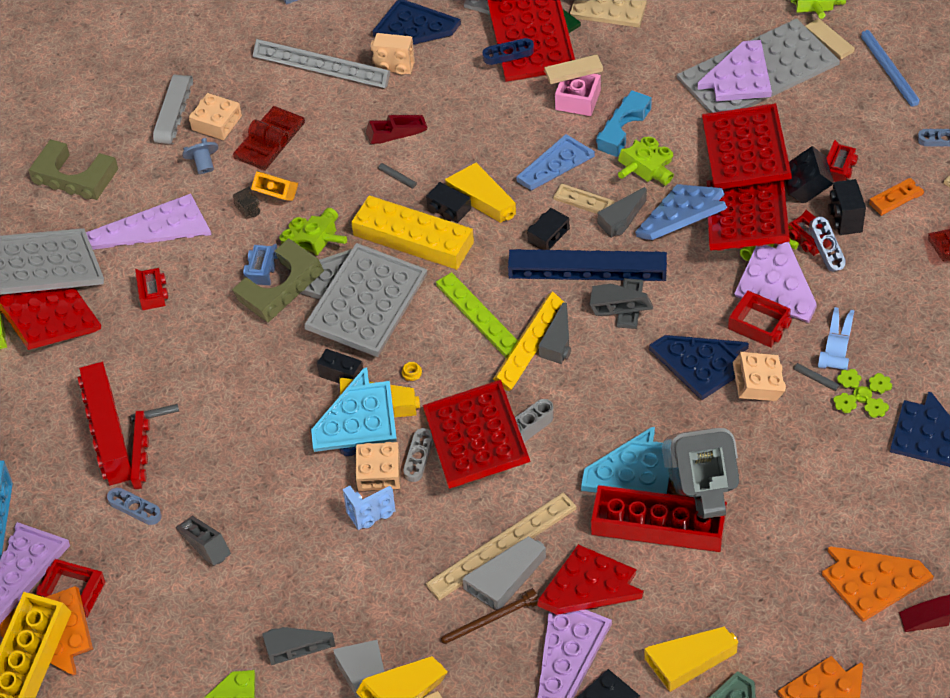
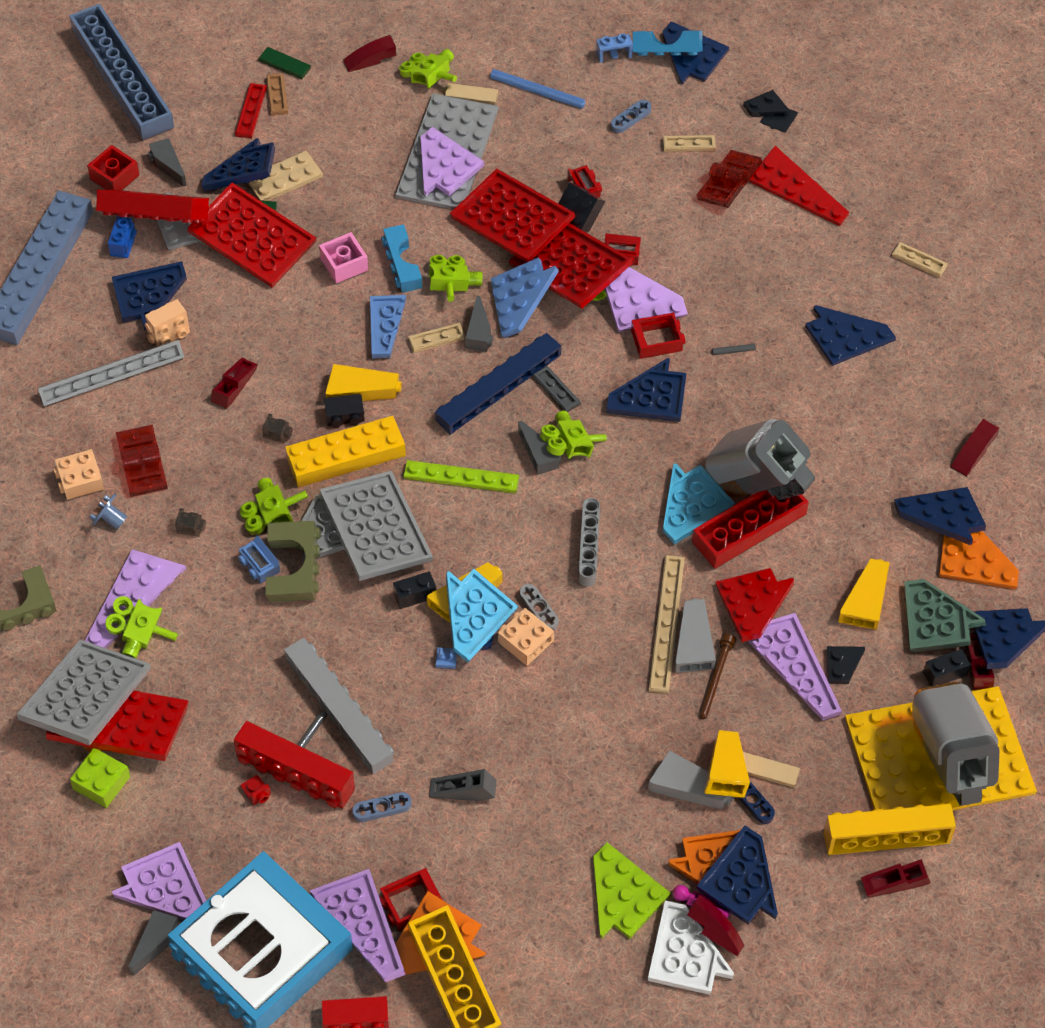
camera: 50 degrees left, 5 degrees up
(68, 423) = (256, 790): none -> red bracket
(127, 248) = (139, 627): none -> lime piece
(139, 456) = (319, 747): red plate -> none
(151, 288) = (195, 642): red window -> none
(172, 109) = (32, 491): light grey beam -> none
(190, 409) = (339, 705): none -> light grey brick
(274, 186) = (198, 493): light orange brick -> none
(291, 643) = (611, 802): dark grey slope -> none
(304, 437) = (446, 658): none -> medium blue tile
(370, 509) = (551, 676): light blue bracket -> none
(384, 181) = (276, 429): none -> clear smoke brick
(398, 176) = (287, 417): dark grey piece -> none
(411, 366) = (464, 558): yellow plate -> none
(475, 434) = (571, 559): red plate -> none
(495, 49) = (255, 268): dark blue beam -> none
(528, 342) = (522, 468): yellow plate -> none
(548, 229) = (441, 377): black brick -> none
(573, 69) = (328, 241): tan tile -> none
(593, 343) = (569, 437): none -> lime piece
(615, 299) = (550, 392): dark grey slope -> none
(759, 376) = (705, 375): light nougat brick -> none
(819, 243) = (635, 242): sand blue beam -> none
(837, 344) = (725, 316): light blue flag -> none
(842, 643) = (944, 512): none -> dark blue wing
(847, 207) = (630, 212): black brick -> none
(862, 394) = (775, 339): lime plant -> none
(873, 580) = (914, 457): orange wing -> none
(896, 196) = (646, 183): orange plate -> none

